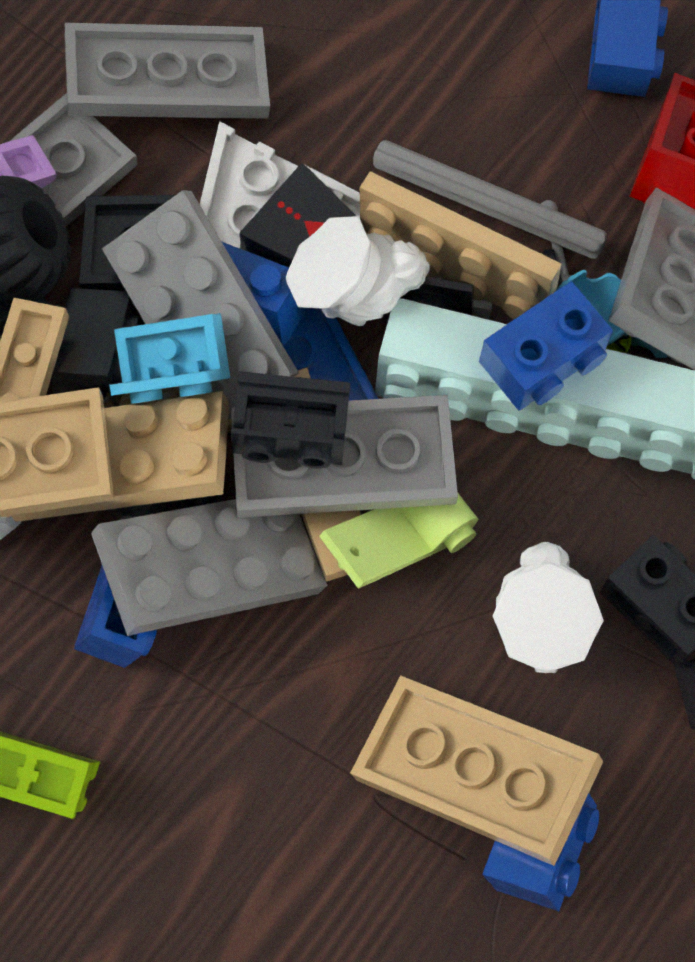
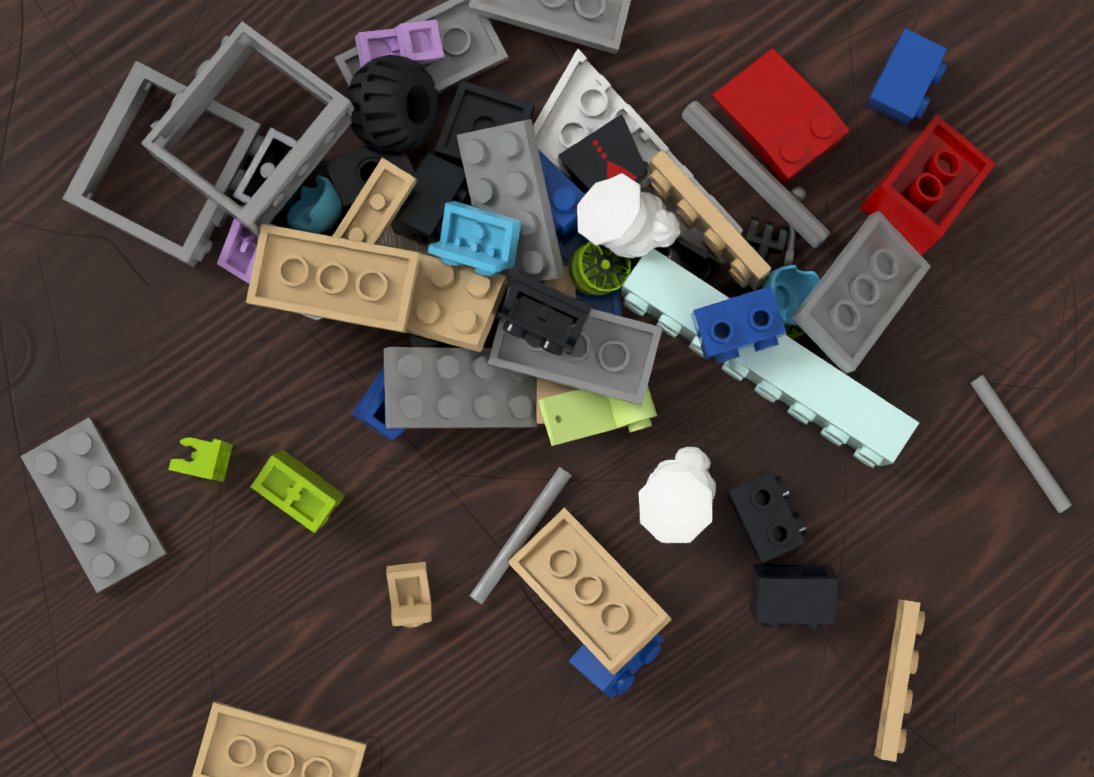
camera: 25 degrees right, 15 degrees up
(231, 862) = (409, 594): none -> tan bracket
(338, 353) = (597, 269): none -> lime wheel
(354, 736) = (520, 535): none -> light grey bar
(496, 126) = (781, 116): none -> red slope

